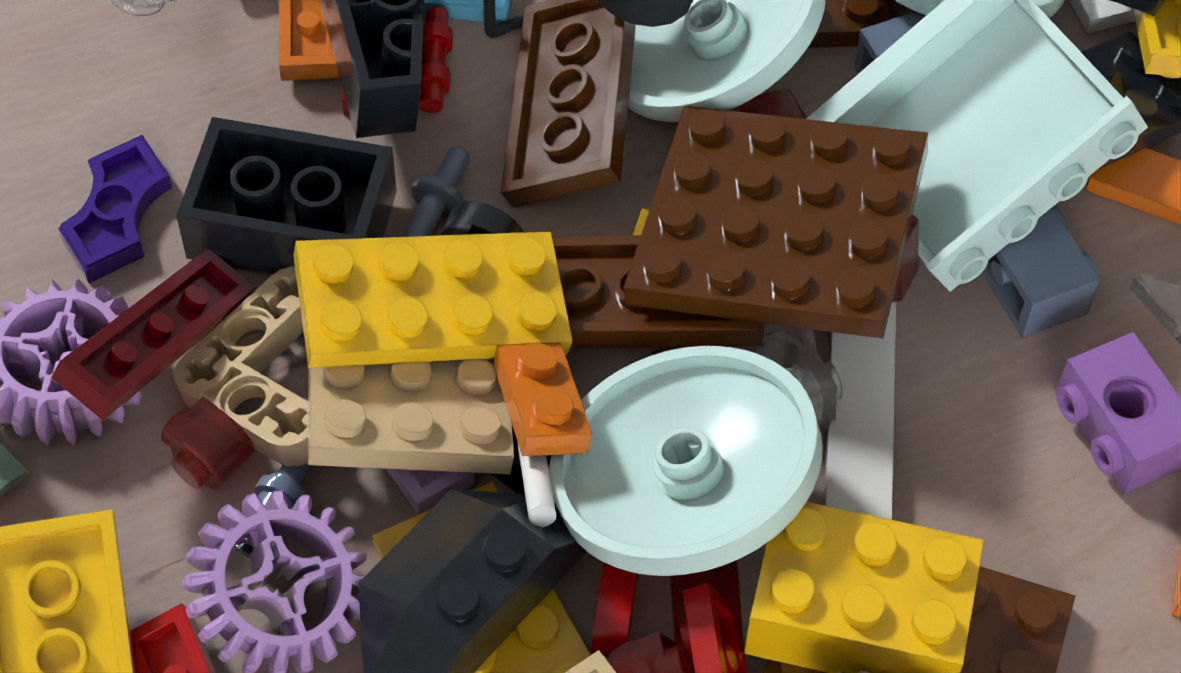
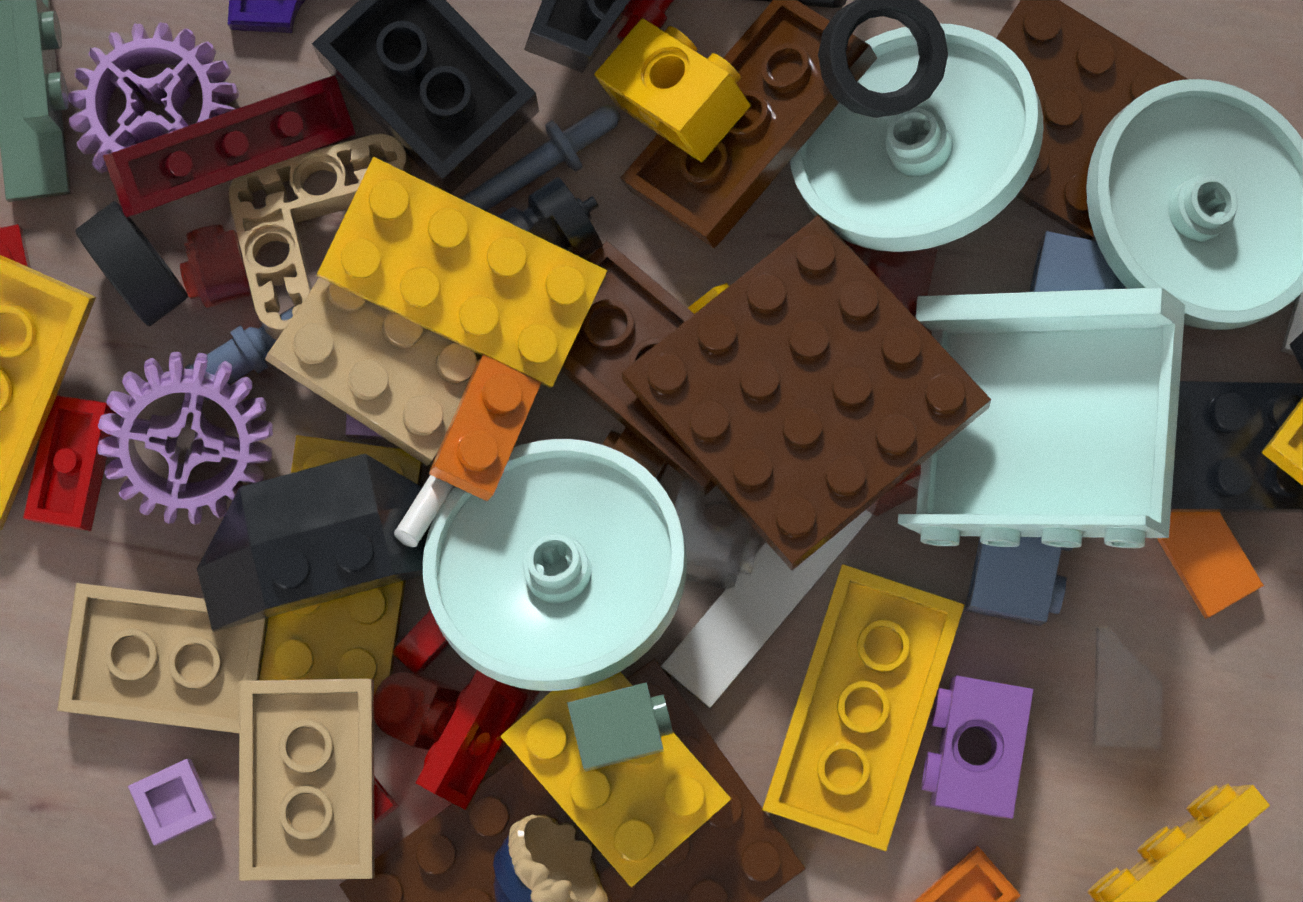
camera: 40 degrees right, 25 degrees up
(130, 473) = (131, 264): none -> black tyre
(498, 99) = (674, 88): none -> yellow brick
(851, 516) = (619, 726): none -> sand green brick
(1013, 448) = (863, 707): none -> yellow plate

